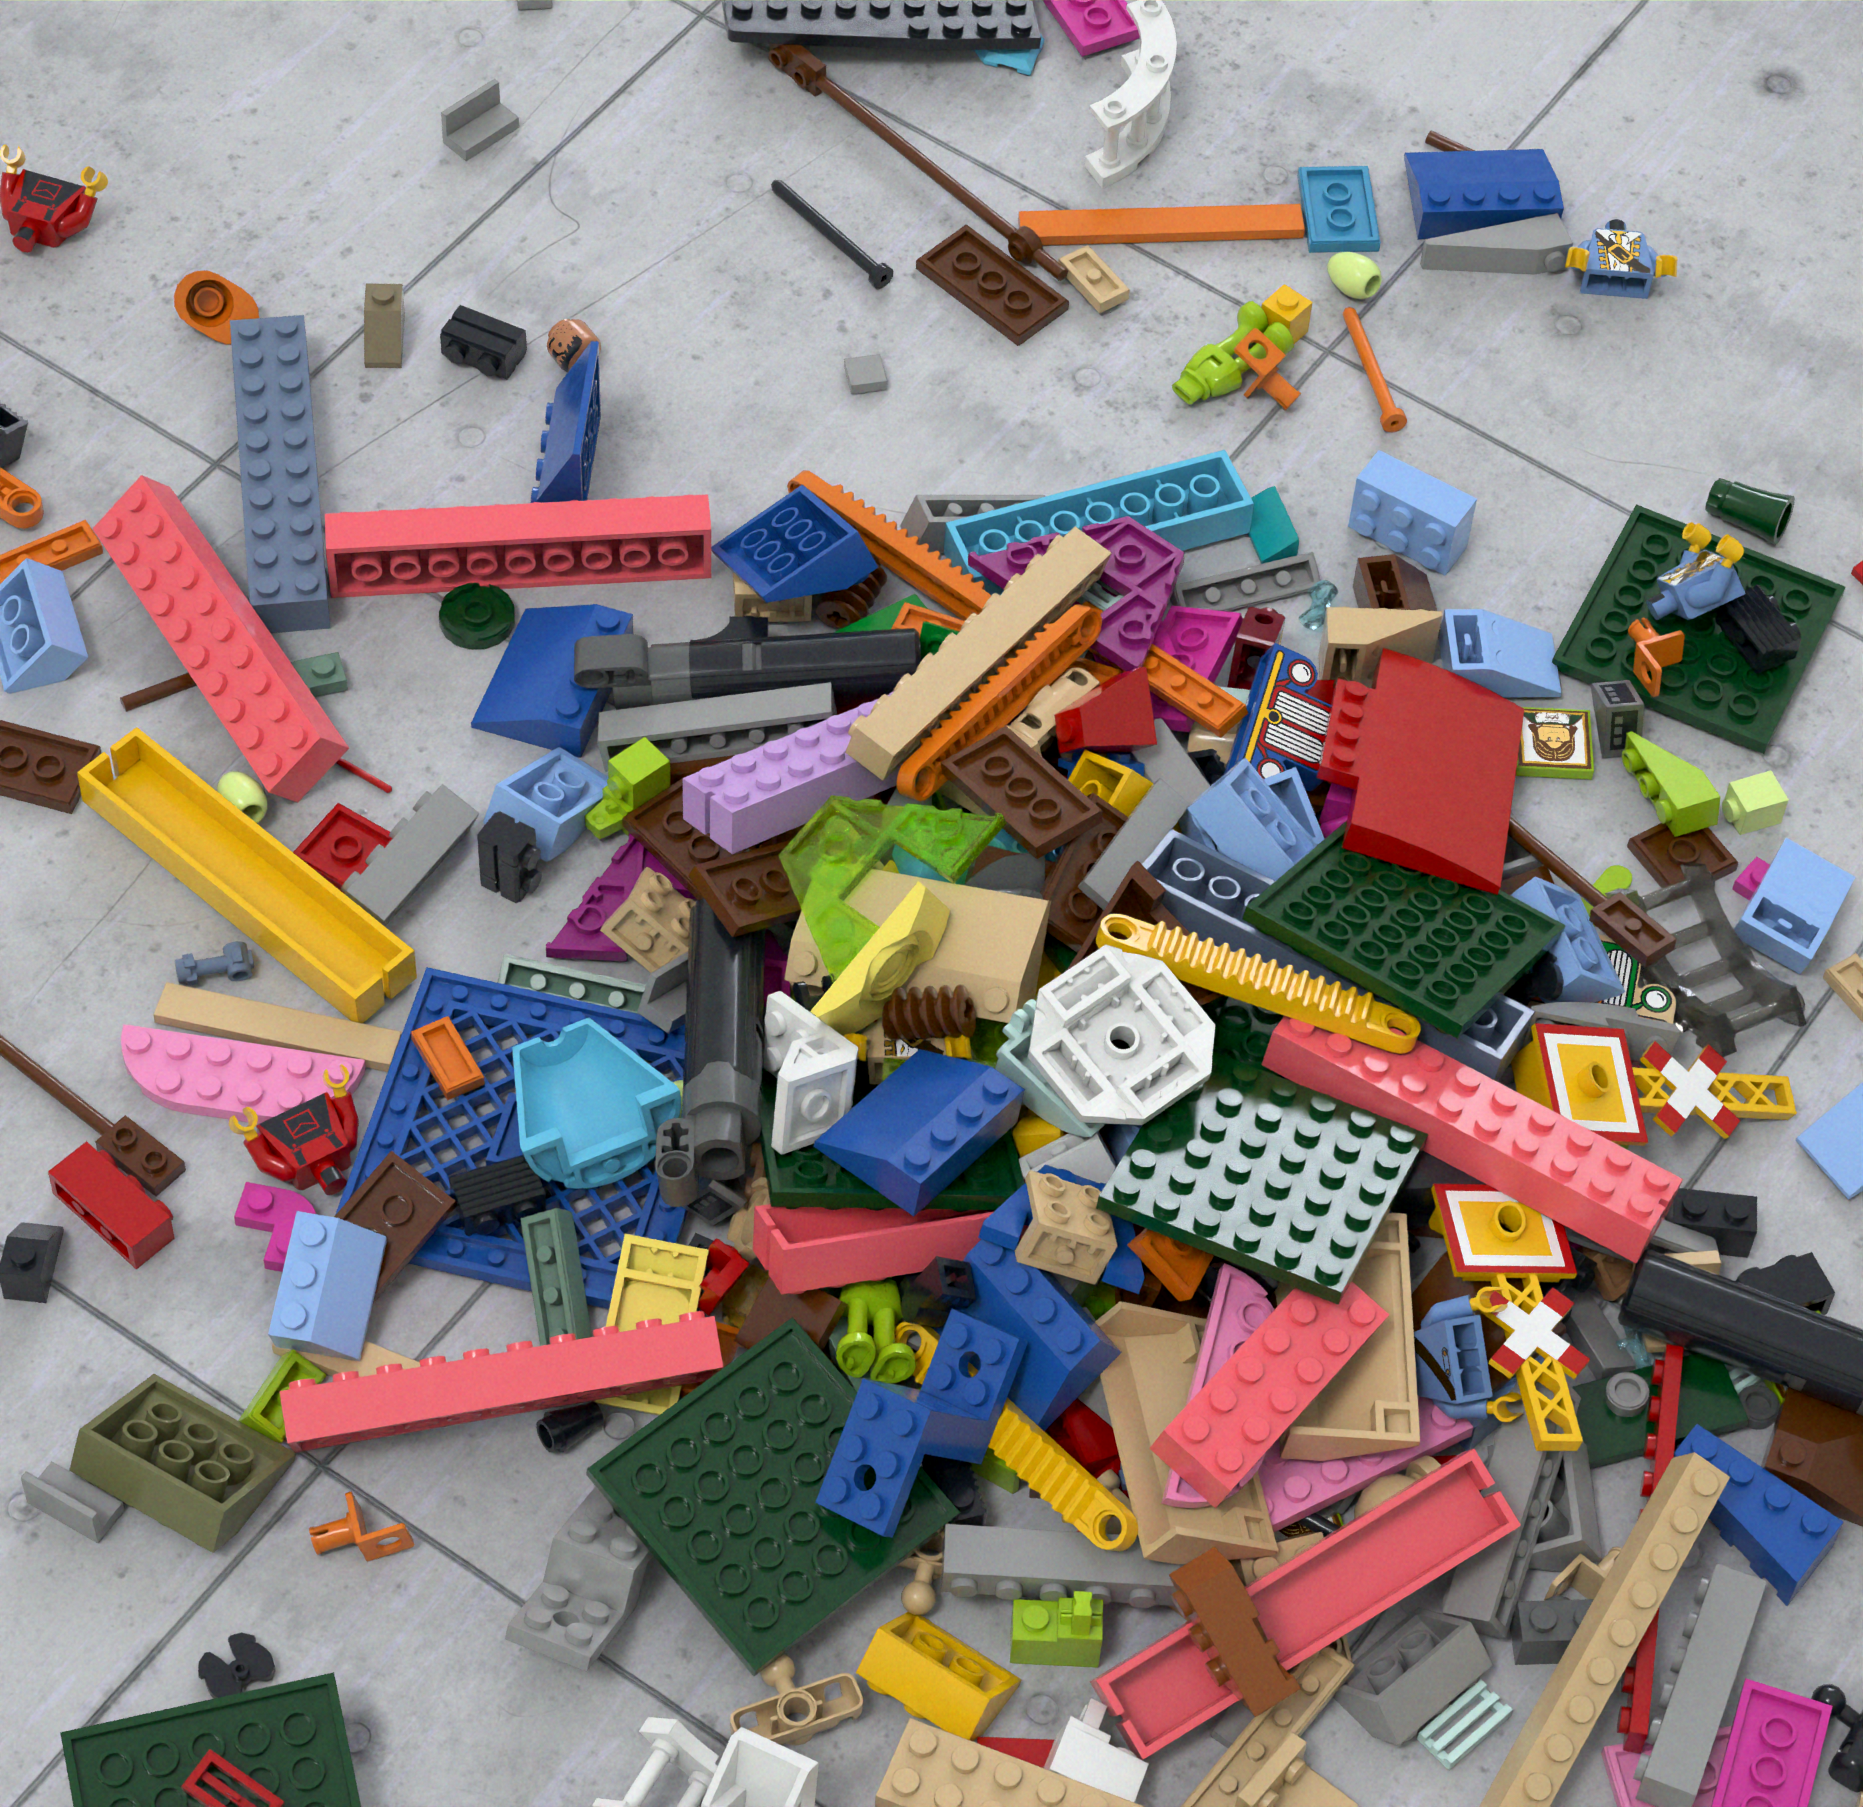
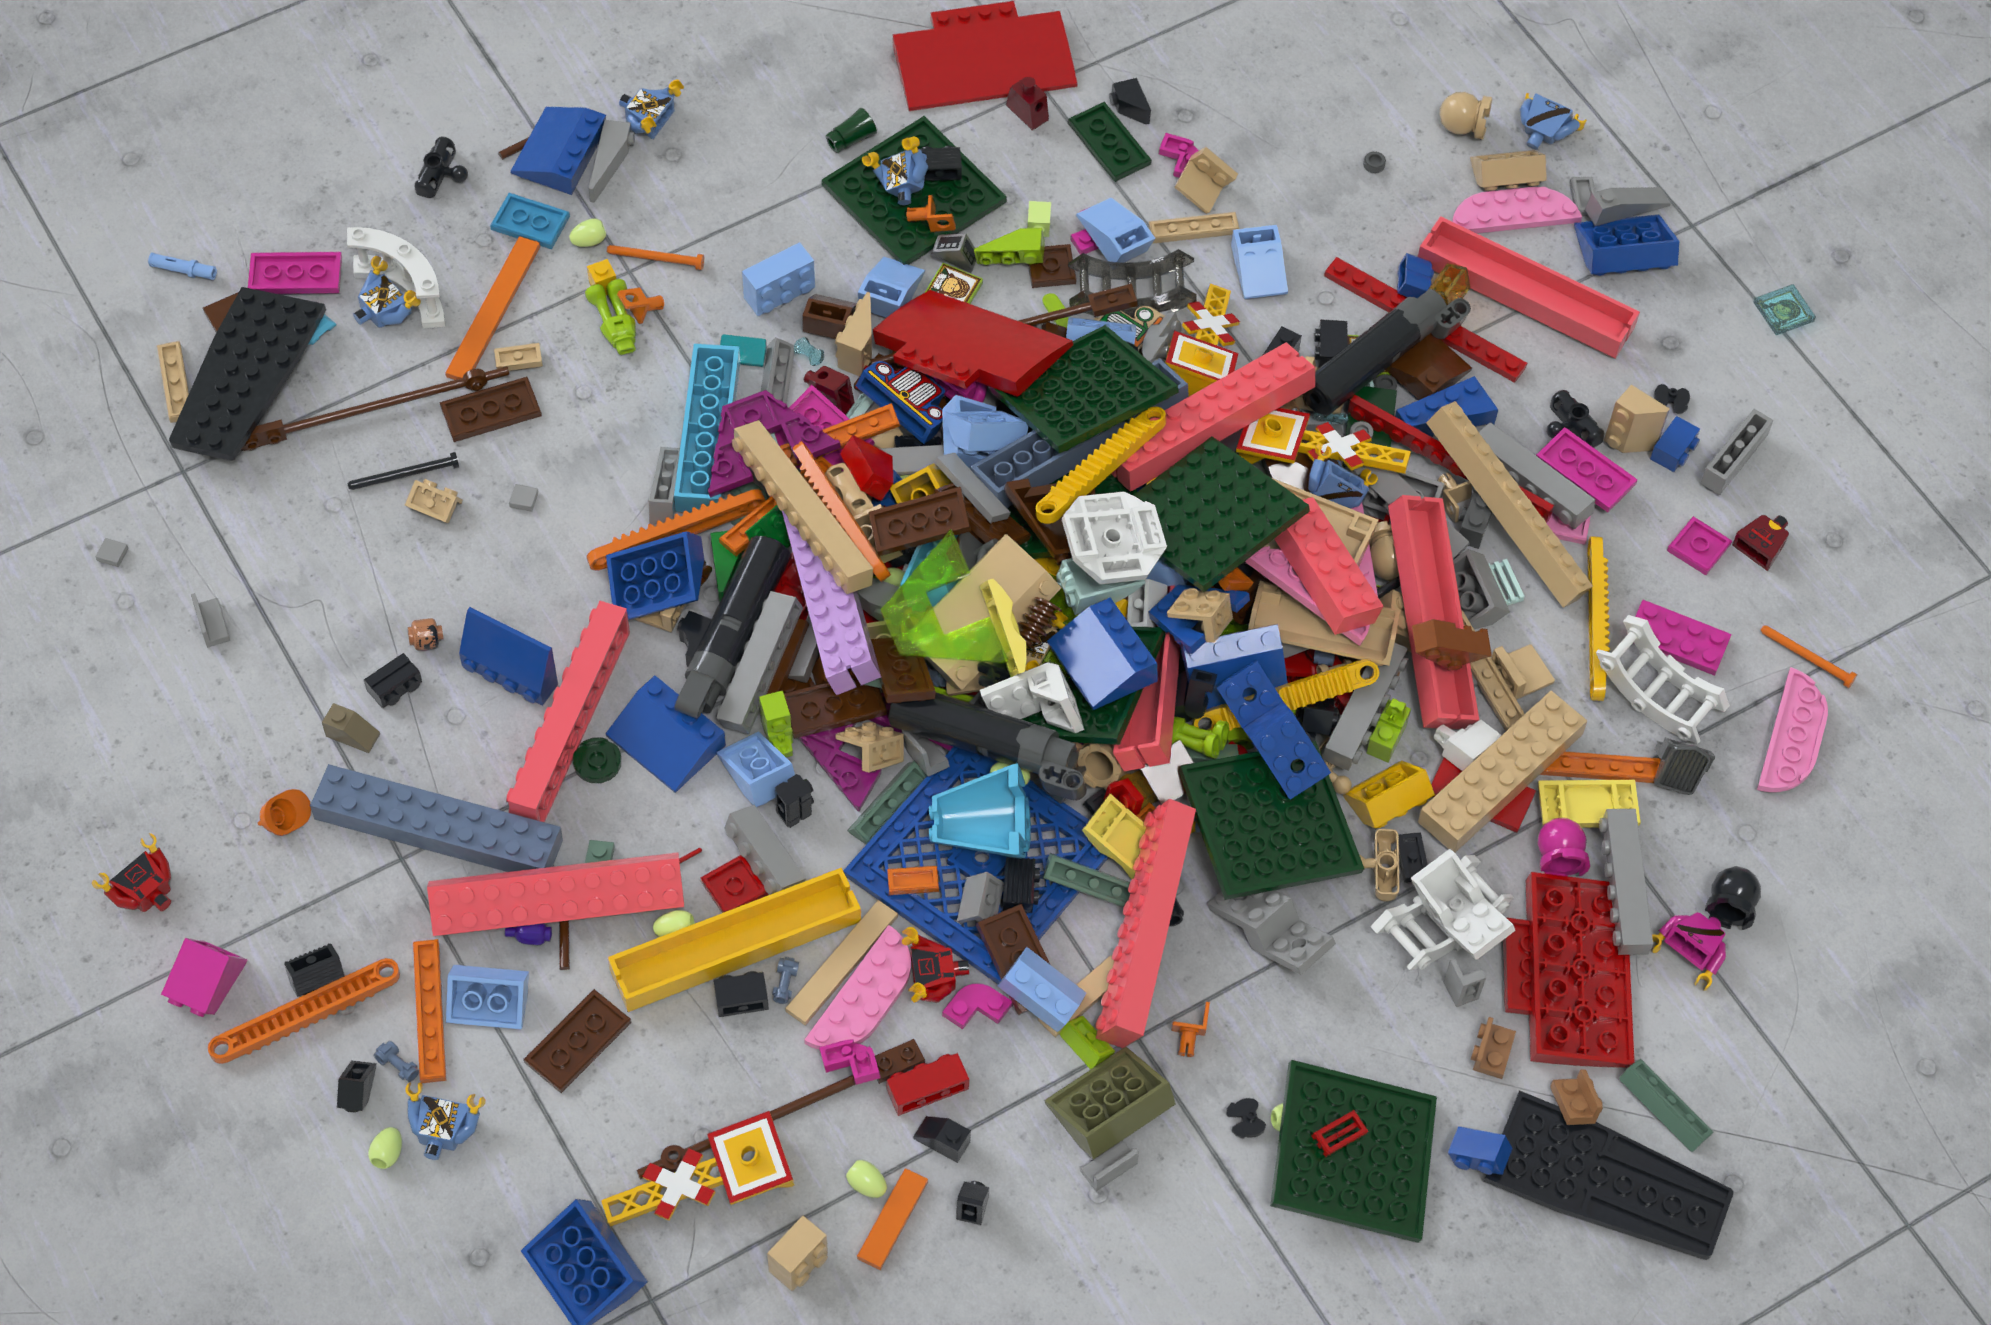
camera: 65 degrees left, 5 degrees up
(116, 1095) = (847, 1054): none -> dark pink plate
(152, 644) = (530, 934): none -> dark purple plant
(164, 918) = (741, 994): none -> black brick
(450, 1153) = (980, 897): none -> light grey panel
(800, 276) = (432, 501): none -> tan bracket
(843, 1750) = (1411, 854): none -> black plate
(1011, 1503) = (1320, 717): none -> black brick
(1083, 89) = (382, 299): none -> torso
(1356, 73) = (441, 160): none -> black piece

